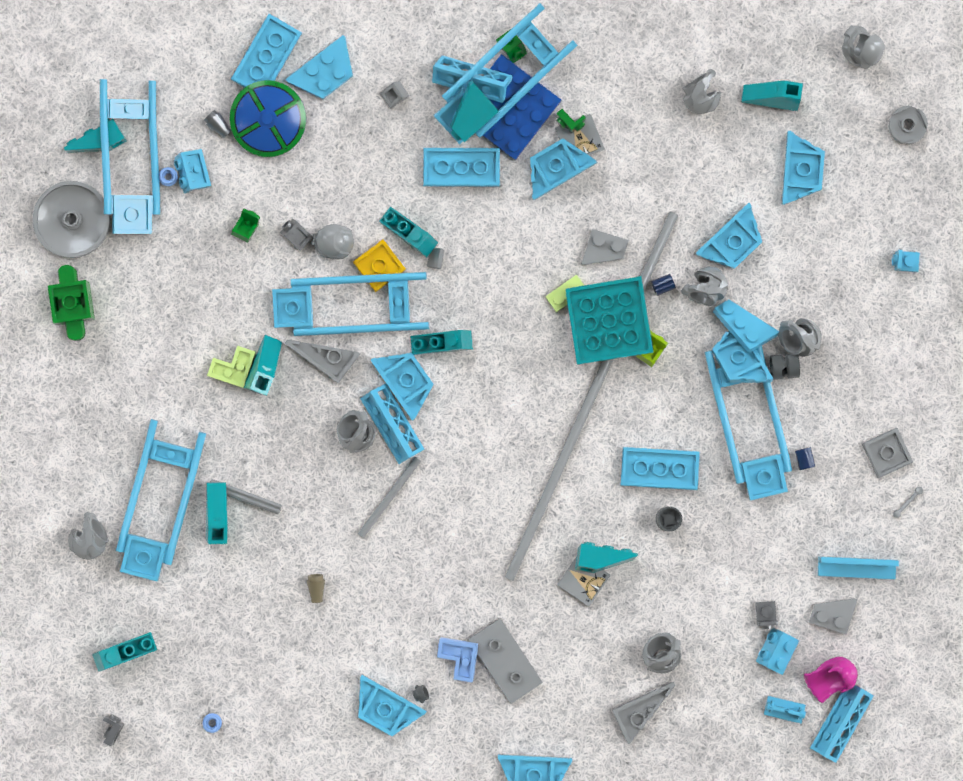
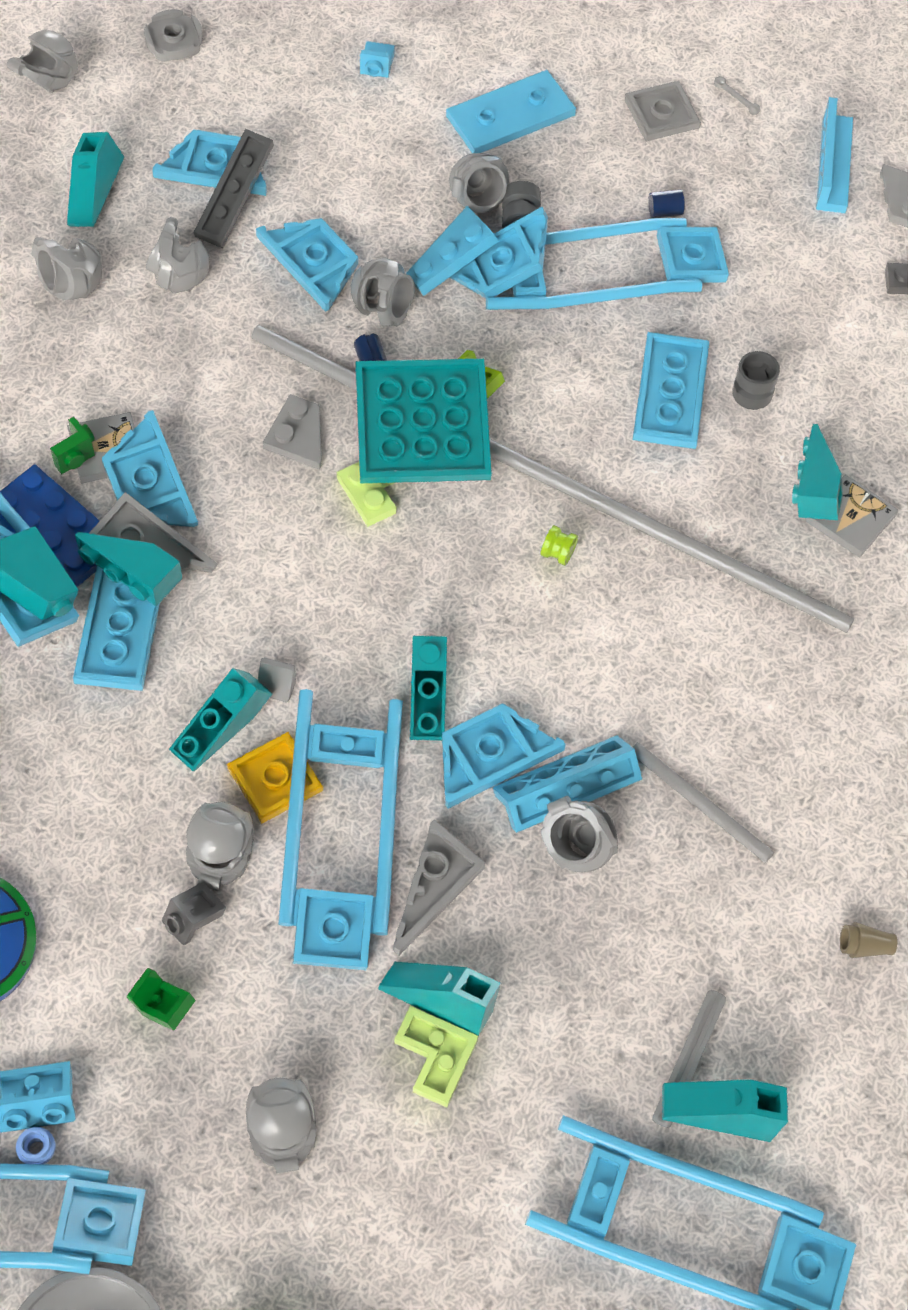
camera: 90 degrees left, 25 degrees down
(189, 294) = (279, 1117): none -> light grey helmet
(491, 174) = (137, 564): none -> teal slope
(518, 166) = (134, 522): none -> light grey wing
(540, 408) = (559, 545): none -> lime wheel
(708, 158) = (177, 266): none -> light grey helmet
(775, 184) = (233, 188): none -> dark grey plate
(872, 353) = (510, 112): none -> medium azure plate

